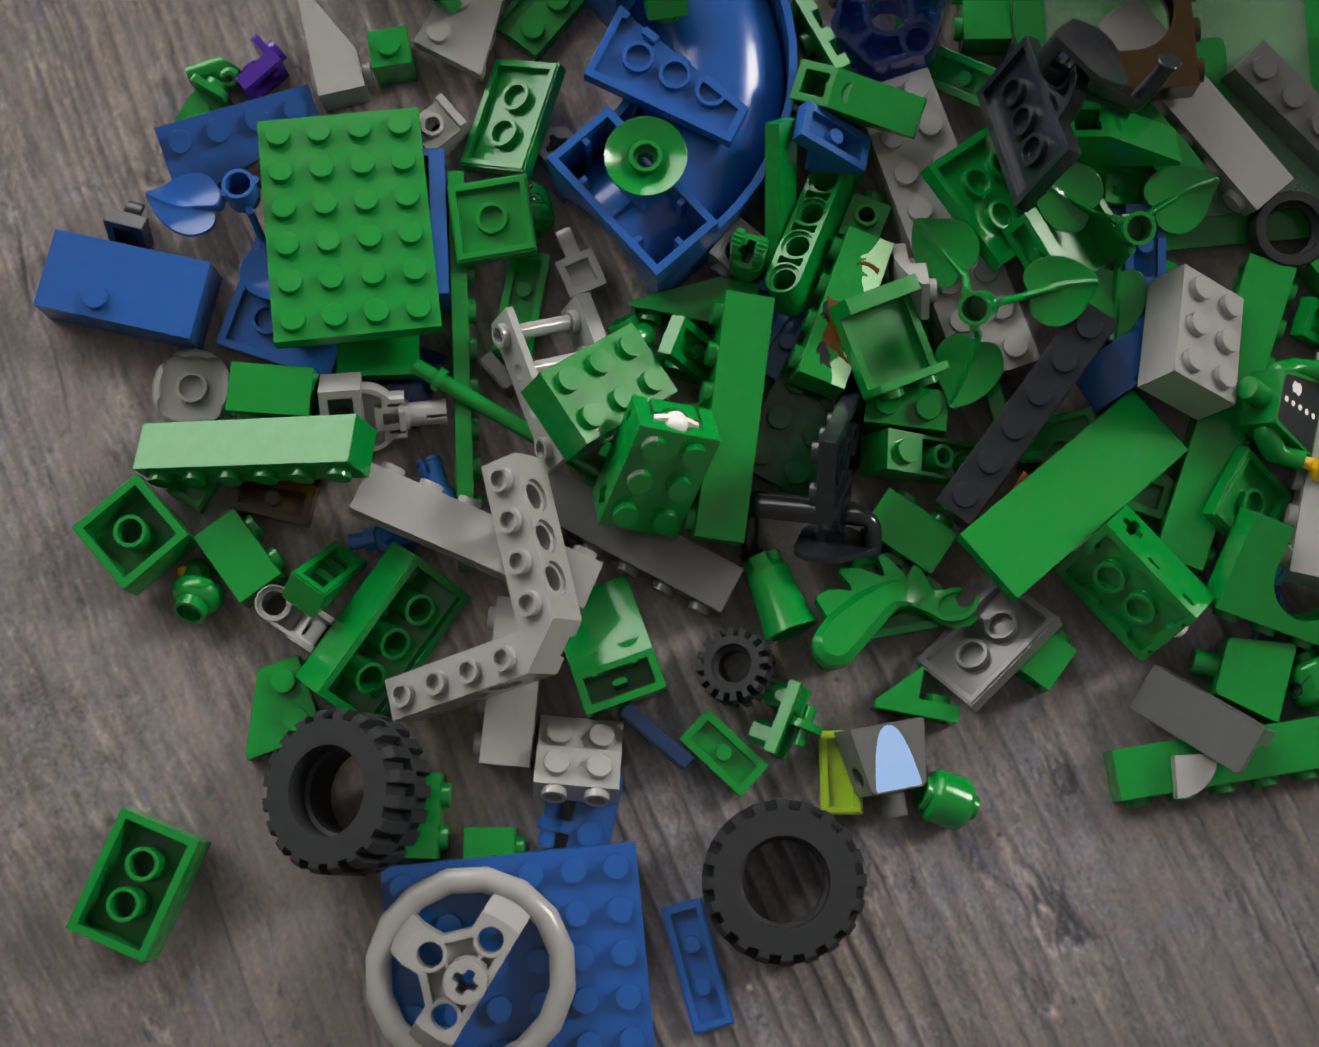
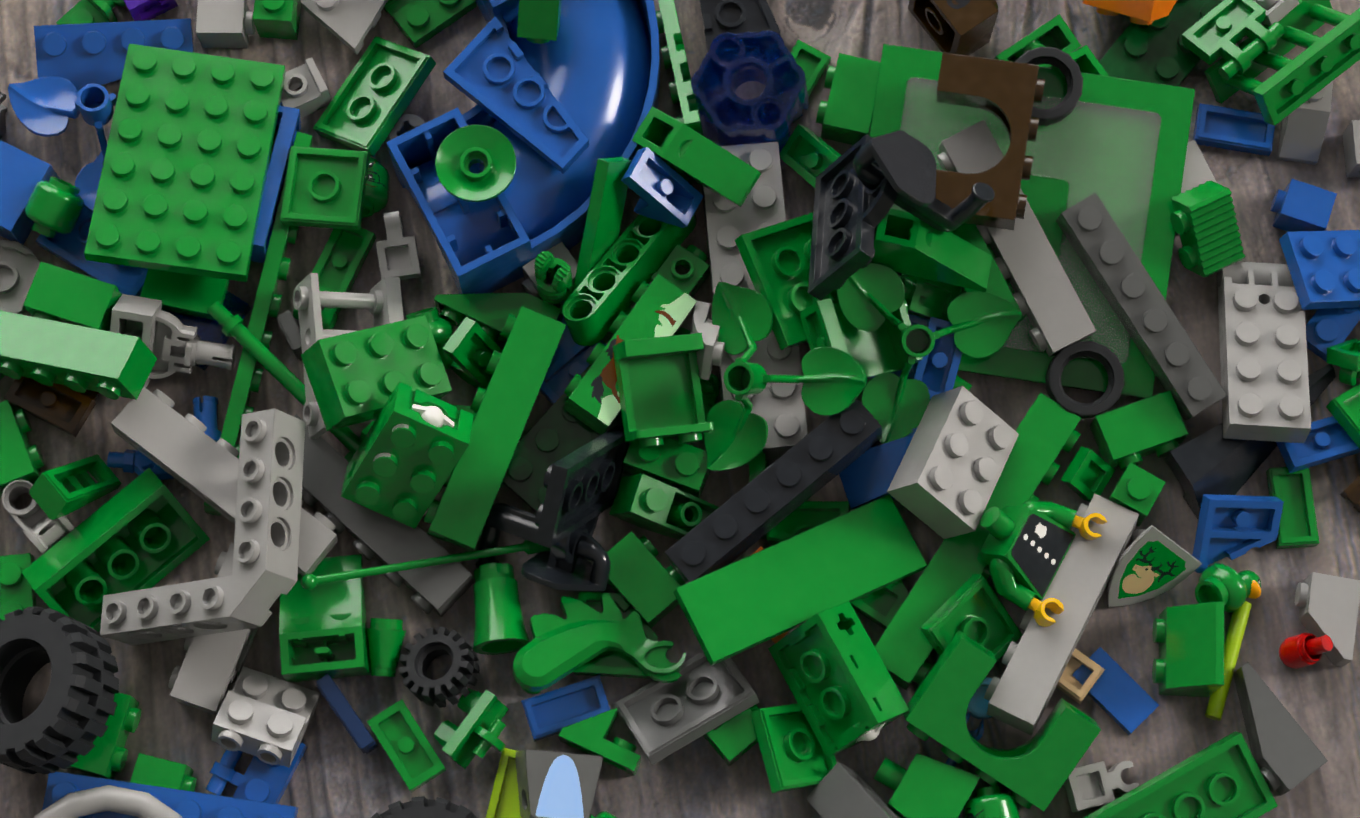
camera: 10 degrees right, 5 degrees down
(226, 304) = (54, 207): none -> green head
(592, 616) = (310, 581): none -> green piece
(675, 659) = (385, 645): none -> green cone
(868, 676) = (564, 707): none -> blue tile
(1104, 663) = (790, 748): none -> green tile

